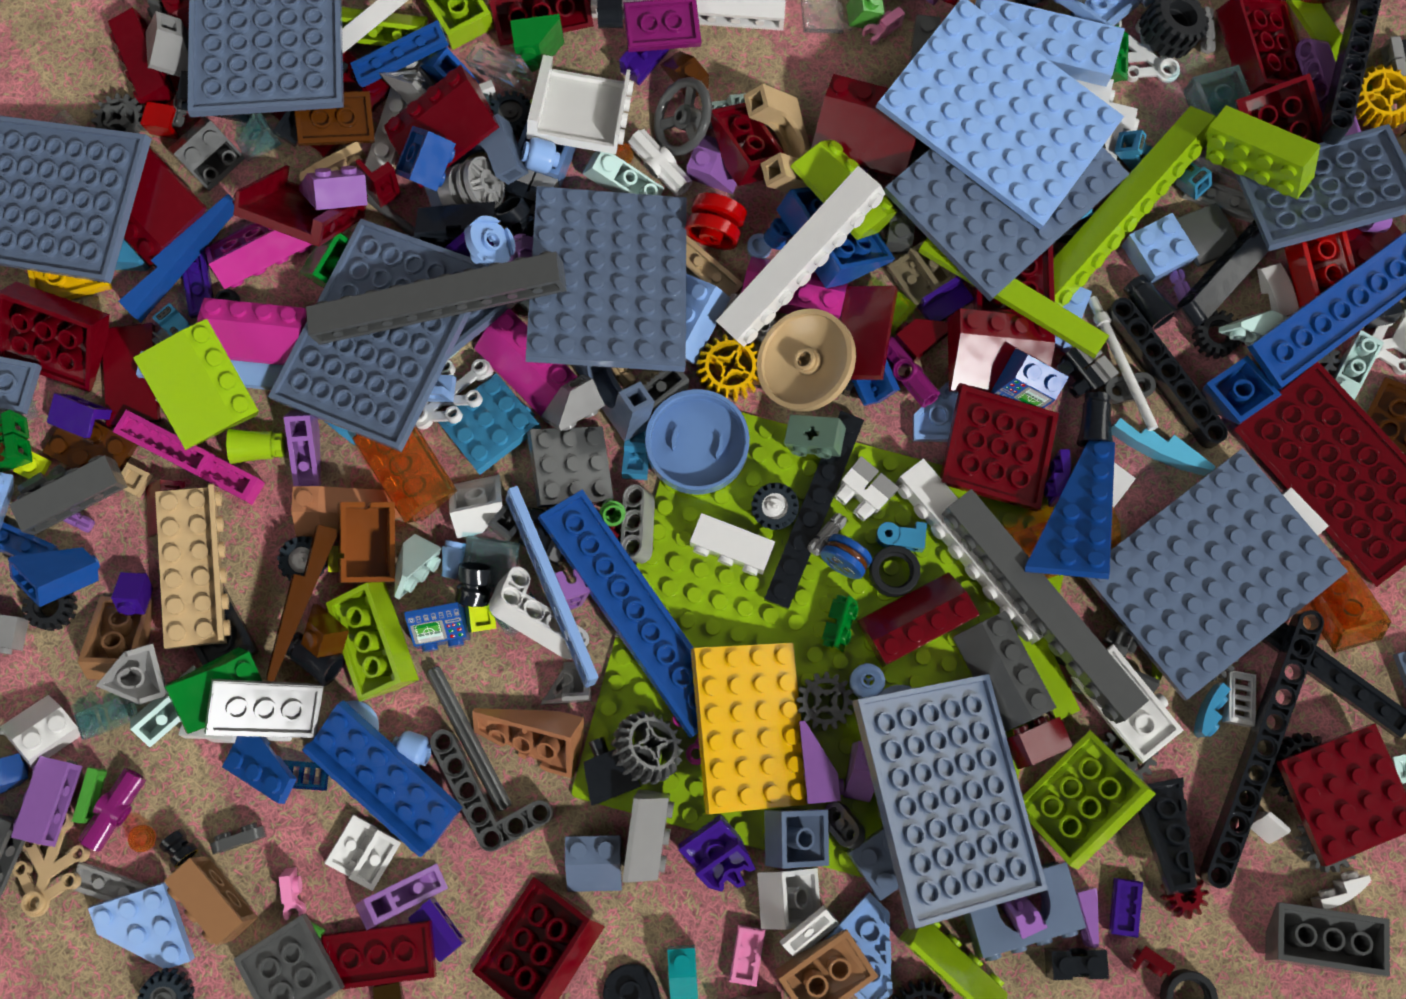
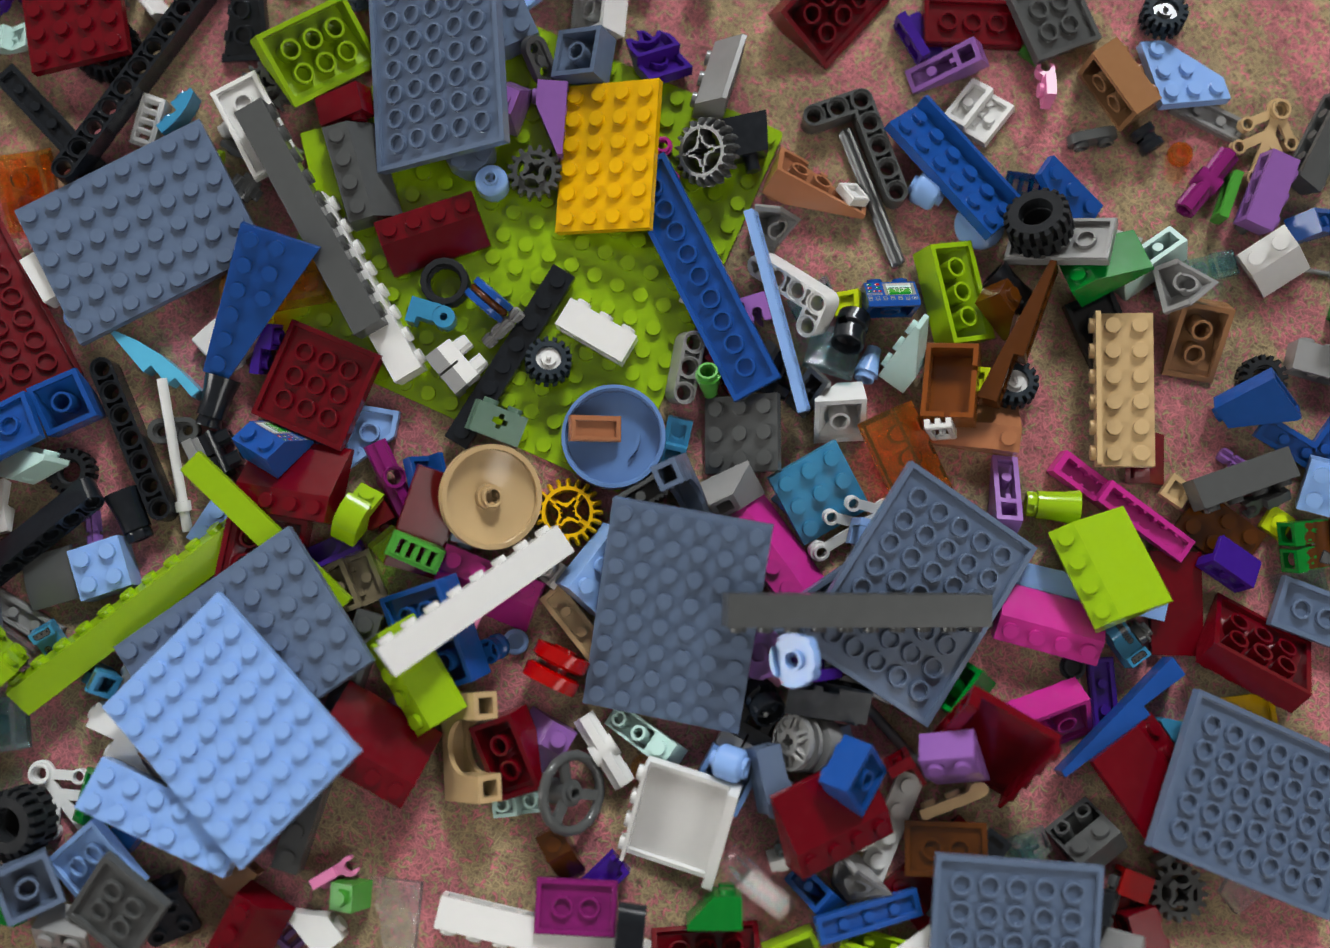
camera: 170 degrees left, 5 degrees up
(132, 593) = (1181, 375): dark purple brick -> none
(302, 736) = (1034, 208): none -> black tyre
(377, 490) = (931, 429): none -> white tile
(488, 734) = (852, 194): none -> white tile
(513, 109) = (753, 831): black wheel -> none
(593, 863) = (770, 72): sand blue slope -> none
(717, 444) = (594, 428): none -> nougat tile
(839, 634) = (510, 234): green hinge -> none
(861, 291) = (422, 564): none -> bright green slope
(931, 327) = (354, 513): none -> lime brick

